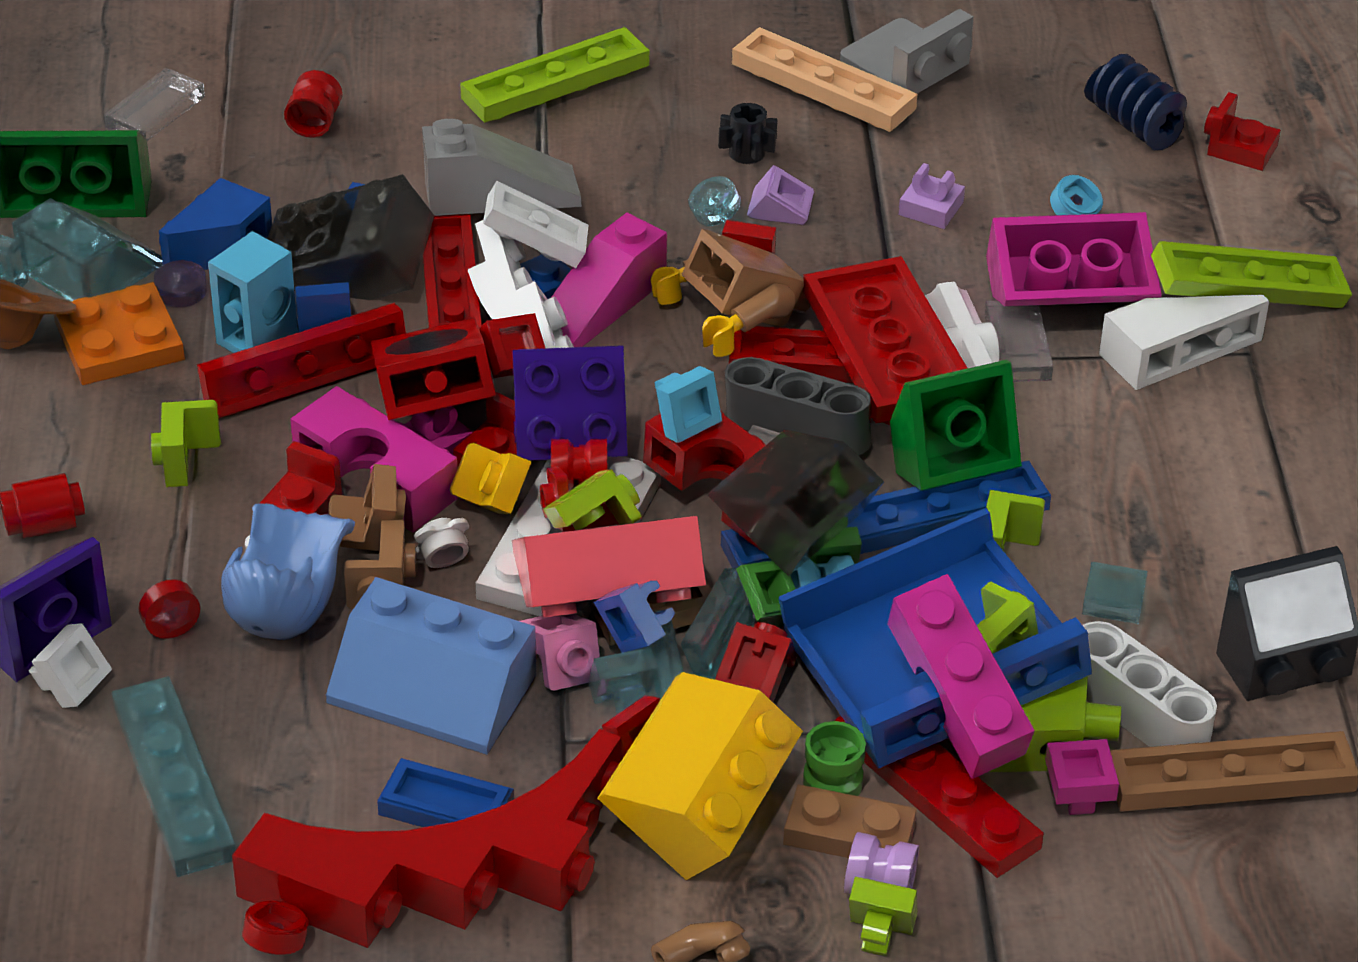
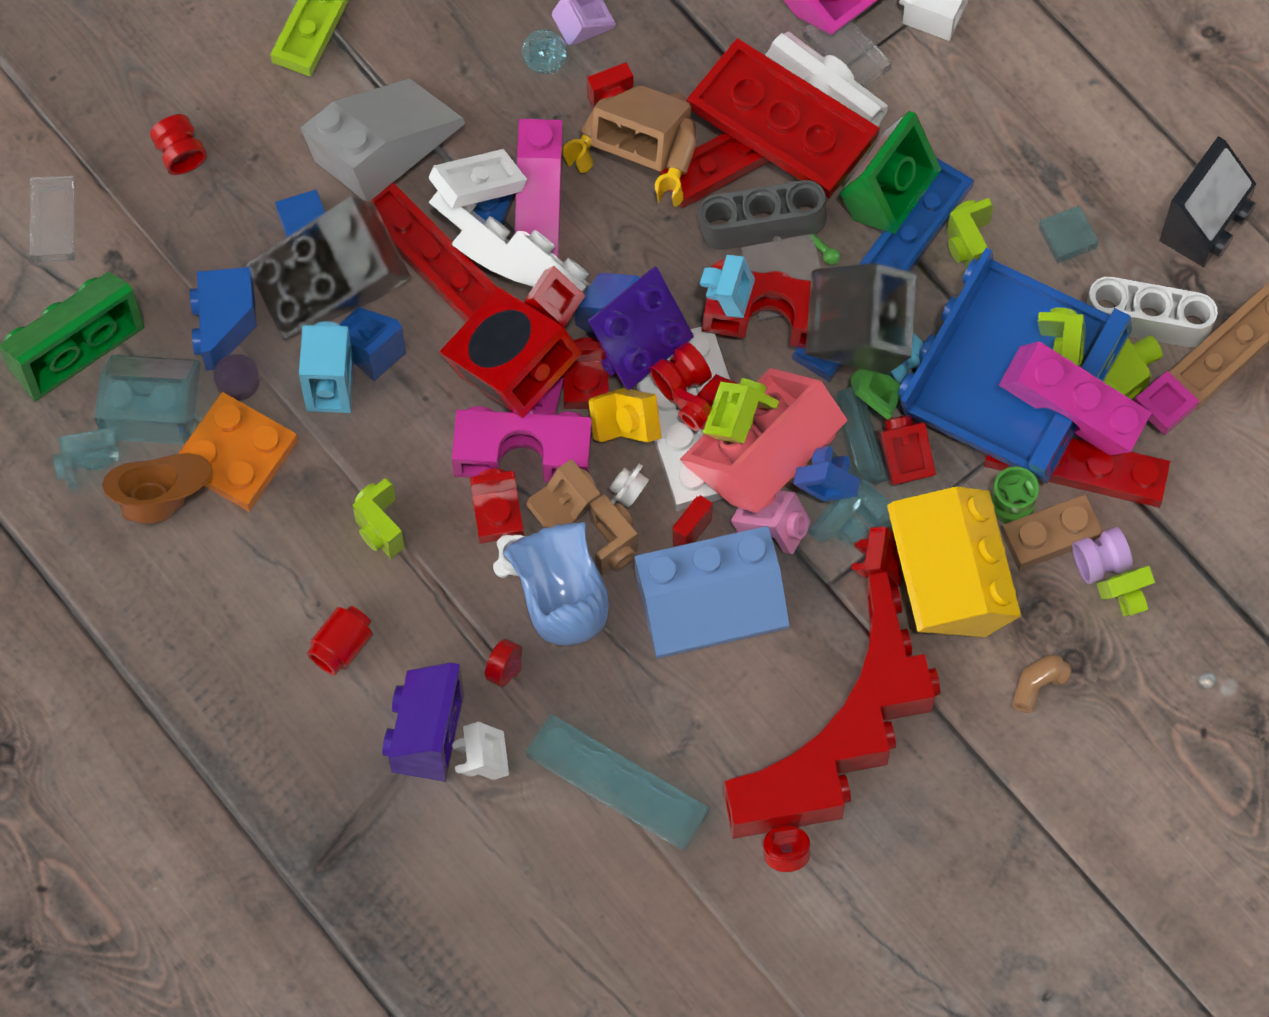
camera: 35 degrees left, 25 degrees up
(297, 360) = (398, 394): red plate -> none
(437, 796) = (800, 683): blue tile -> none
(478, 591) = (693, 521): none -> red tile

